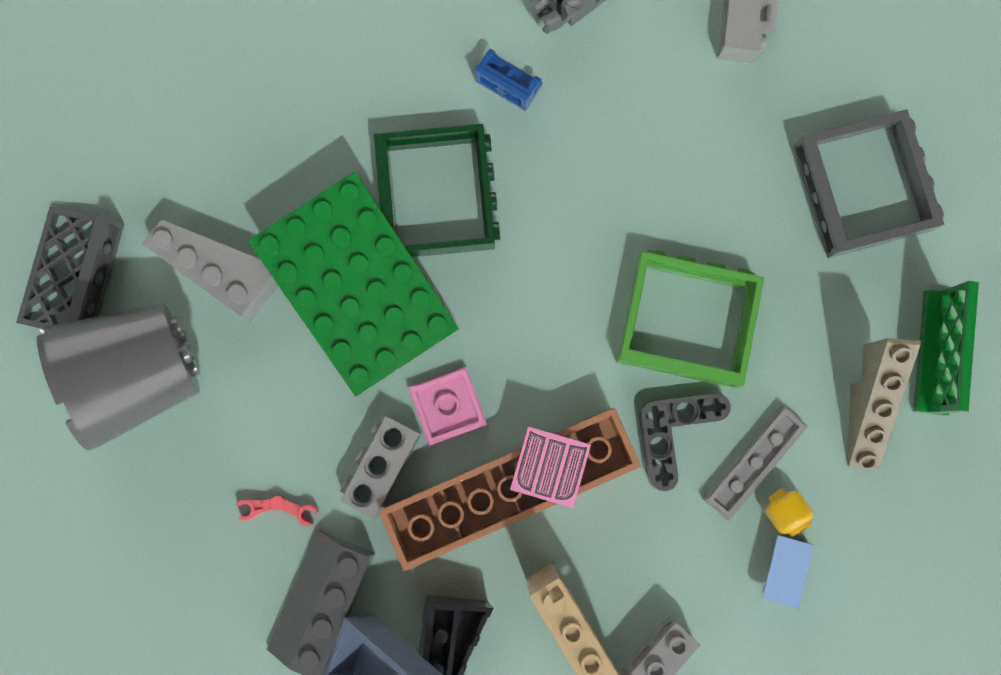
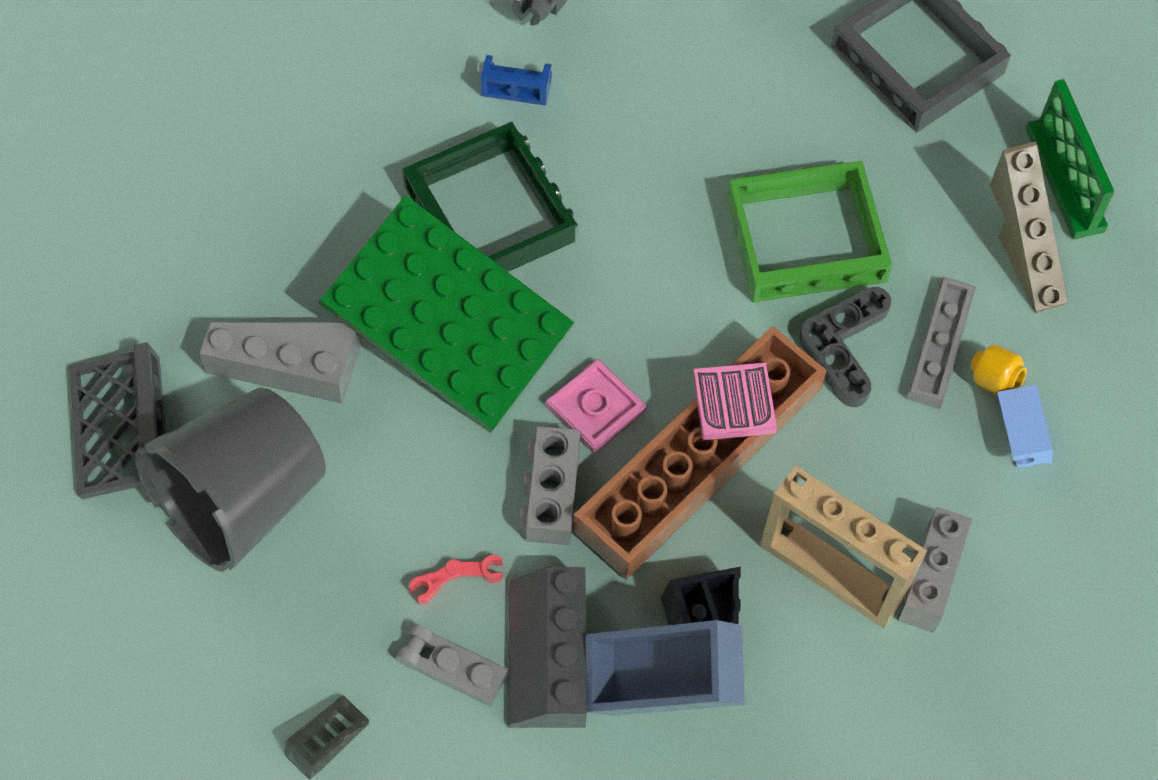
camera: 25 degrees left, 20 degrees down
(100, 610) = (311, 765): none -> clear smoke slope
(244, 583) = (453, 665): none -> light grey plate

